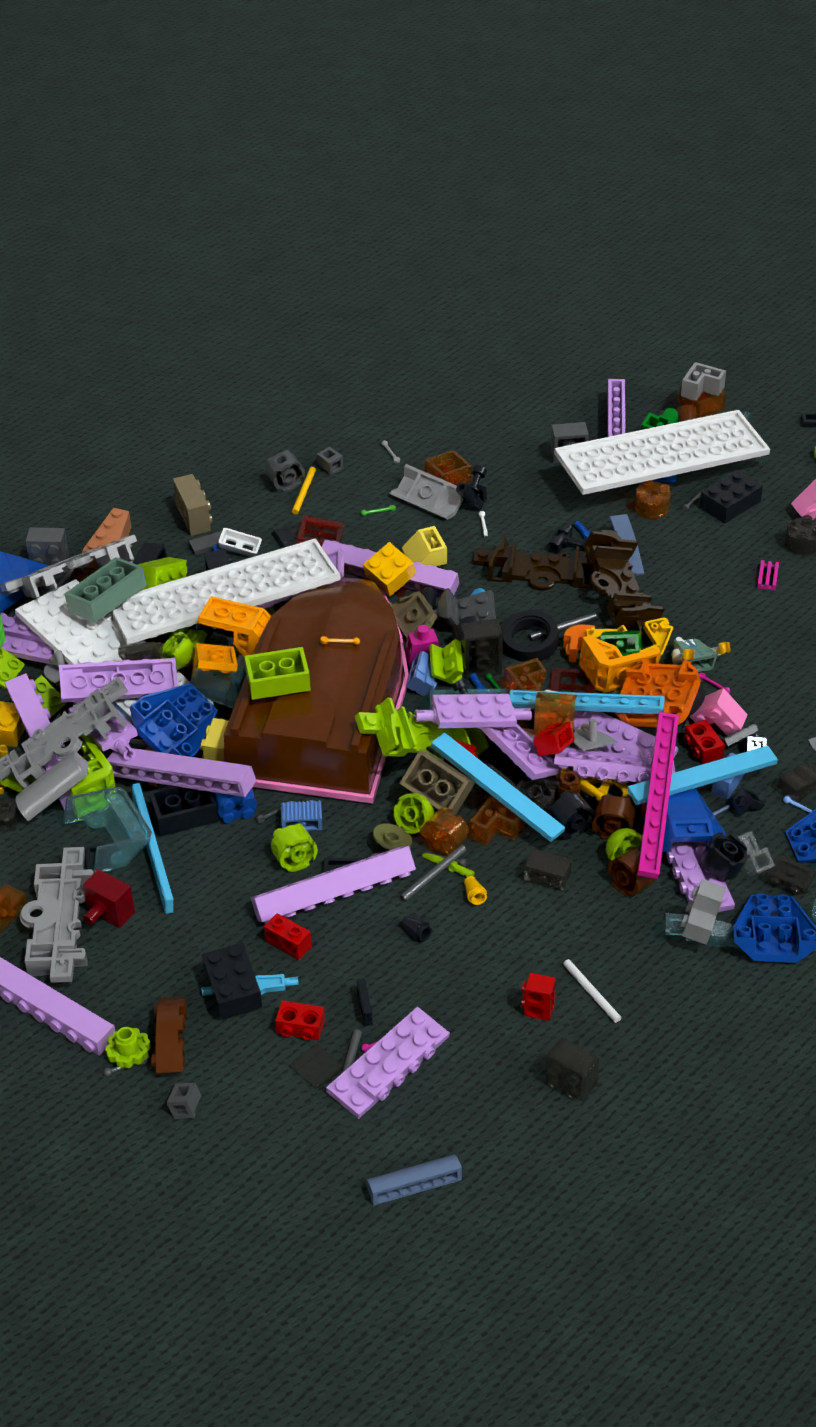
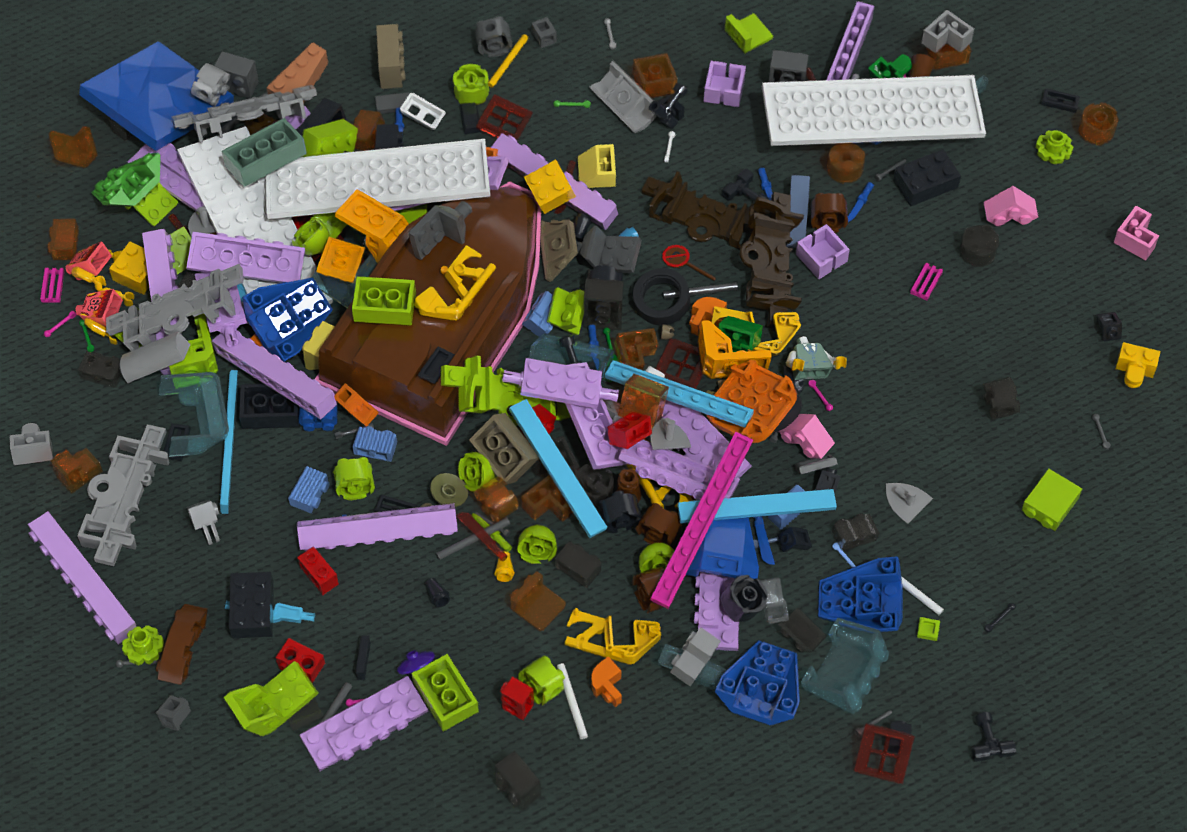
camera: 15 degrees right, 15 degrees up
(27, 554) = (210, 84): none -> light grey brick
(107, 899) = (169, 490): dark red brick -> none
(142, 651) = (277, 232): clear smoke bracket -> none
(152, 914) = (202, 515): none -> light grey brick
(195, 560) = (367, 124): none -> clear orange brick
(250, 870) = (309, 489): none -> medium blue brick
(272, 785) = (355, 405): none -> orange brick
(278, 511) = (471, 84): none -> lime brick
(290, 1061) = (268, 707): none -> lime bracket
(305, 602) = (436, 224): none -> dark grey plate
(324, 668) = (432, 304): none -> yellow piece
(346, 719) = (432, 369): none -> black tile
(418, 642) = (552, 278): dark pink torso -> none
(420, 990) = (415, 661): none -> dark purple dish
(442, 865) = (474, 526): none -> clear red piece
(463, 1010) = (445, 692): none -> lime brick
(500, 857) = (537, 544): none -> lime cylinder
(515, 425) = (747, 32): none -> lime bracket
(519, 470) = (724, 88): none -> lavender piece
(519, 913) = (536, 602): none -> clear orange bracket
(533, 603) = (678, 256): none -> piece
(548, 663) = (665, 332): none -> dark tan hinge
(562, 968) = (543, 678): none -> lime brick
(618, 964) = (603, 681): none -> orange brick
(639, 912) = (645, 637): none -> yellow piece
(656, 538) = (829, 210): none -> reddish brown brick
(664, 569) = (825, 253): none -> lavender piece
(679, 526) = (861, 199): none -> blue piece
(703, 742) = (780, 462): red brick -> none
(722, 817) = (764, 545): none -> blue piece

